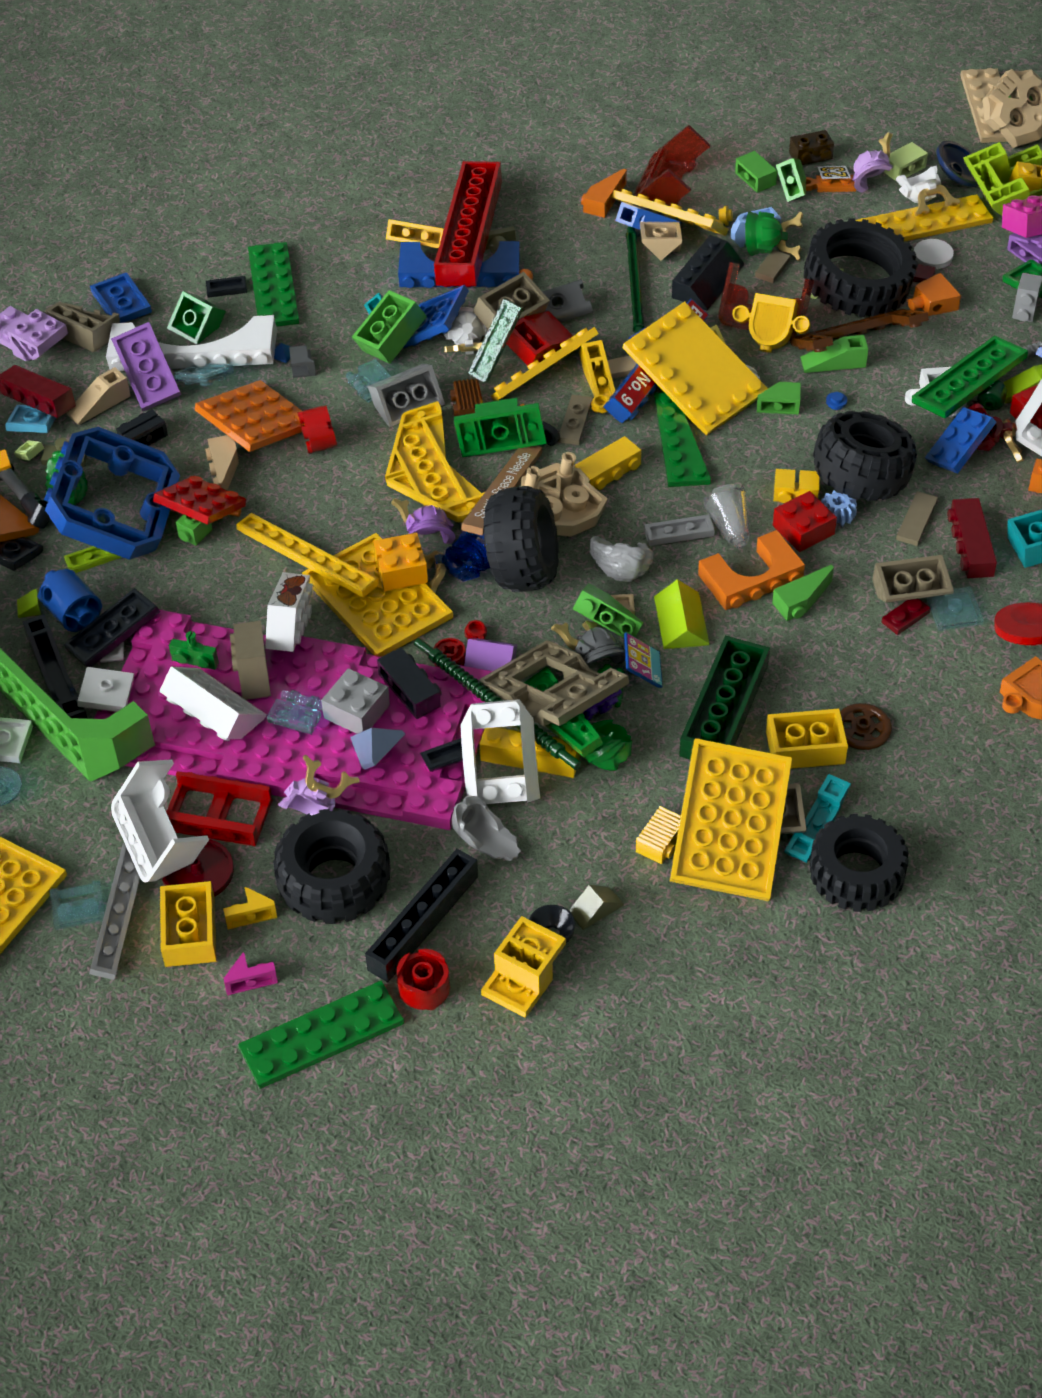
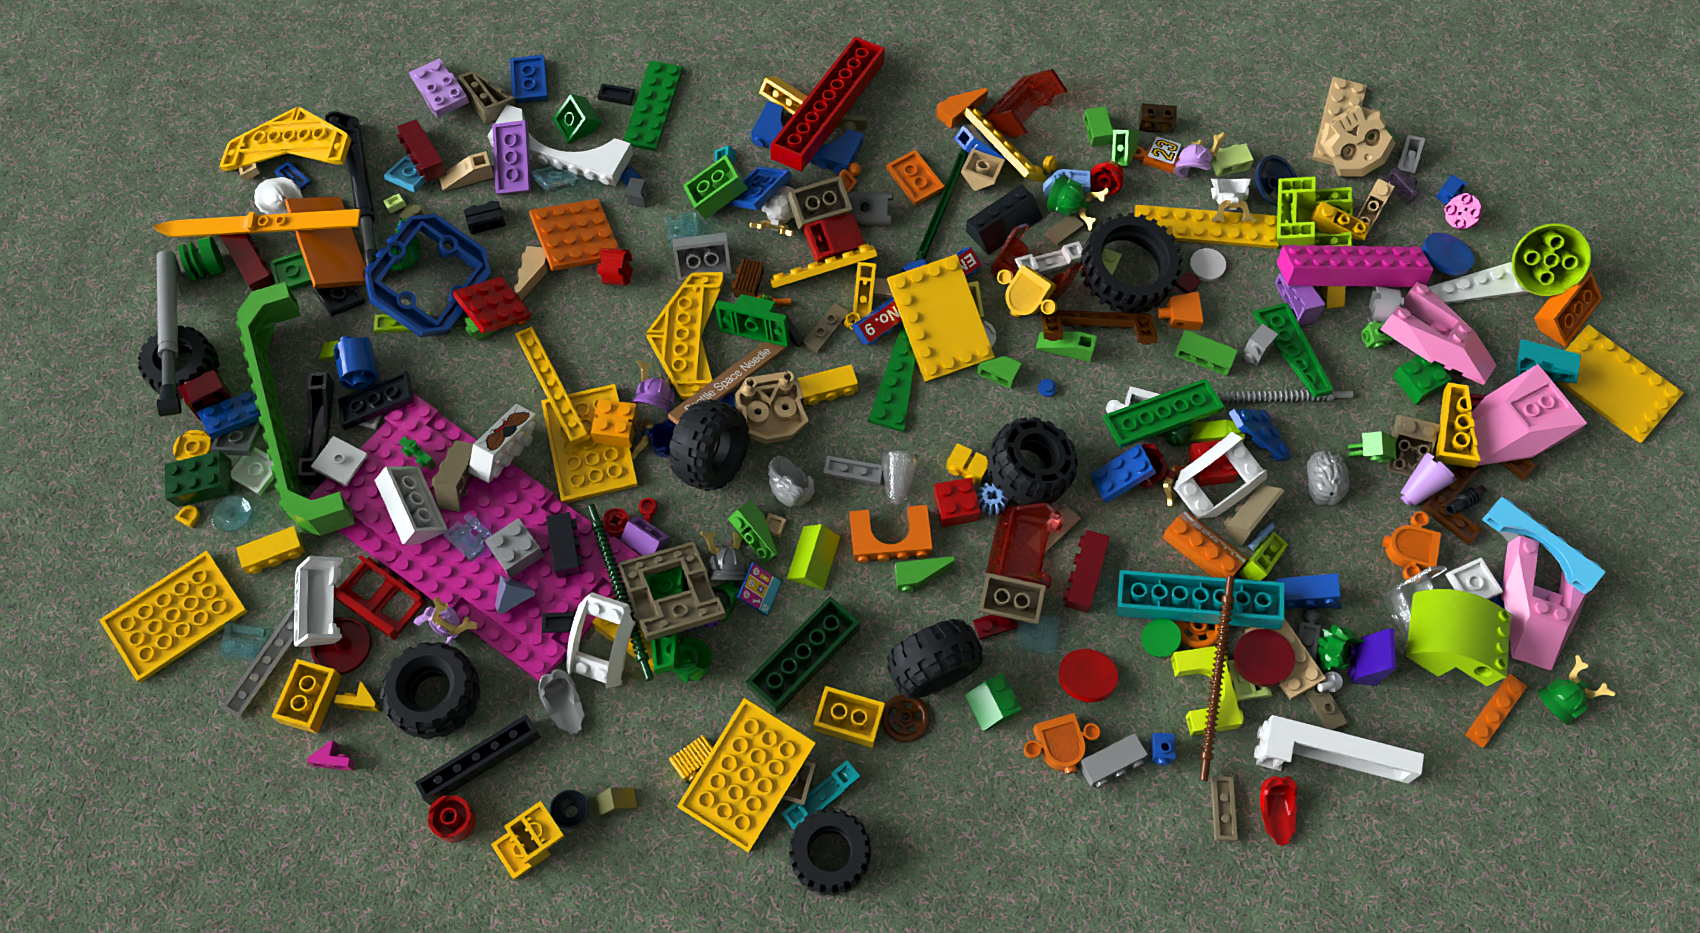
camera: 20 degrees right, 15 degrees up
(64, 805) = (271, 550): none -> yellow brick
(320, 1034) = (361, 831): green plate -> none
(495, 340) = (790, 233): clear green plate -> none
(593, 266) = (915, 177): none -> orange plate
(789, 286) = (1053, 261): none -> white slope
(790, 203) = (1107, 175): none -> red cone
(871, 644) = (934, 658): none -> black tyre
(889, 529) = (1022, 542): none -> clear red windscreen
(947, 678) = (993, 702): none -> green slope
(977, 322) = (1206, 352): none -> bright green brick

